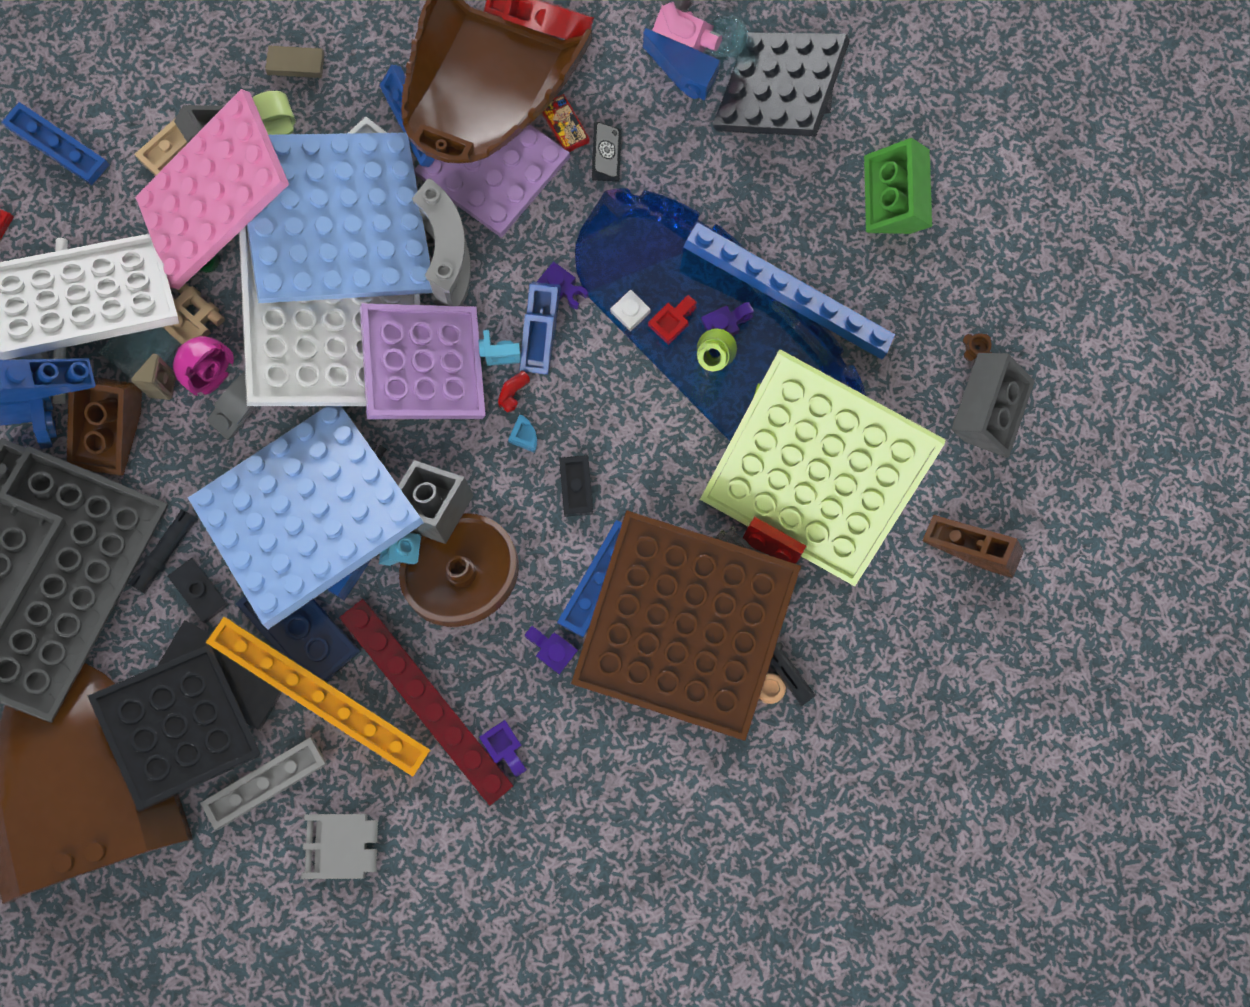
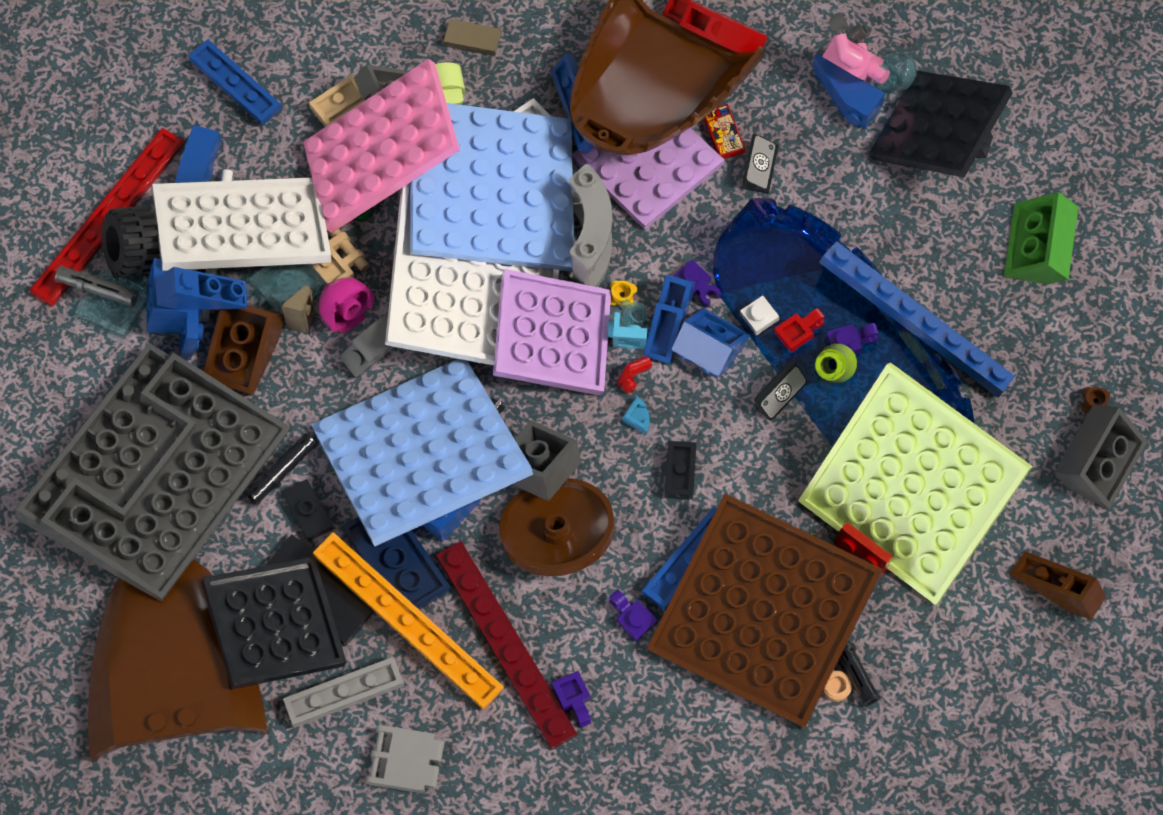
camera: 15 degrees right, 10 degrees down
(26, 228) = (199, 155): none -> blue slope
(403, 551) = (506, 500): medium azure bracket -> none
(492, 302) = (622, 287): none -> yellow plate
(507, 325) = (633, 313): none -> clear light blue plate
(585, 346) = (709, 342): none -> slope
(664, 386) = (780, 391): none -> slope

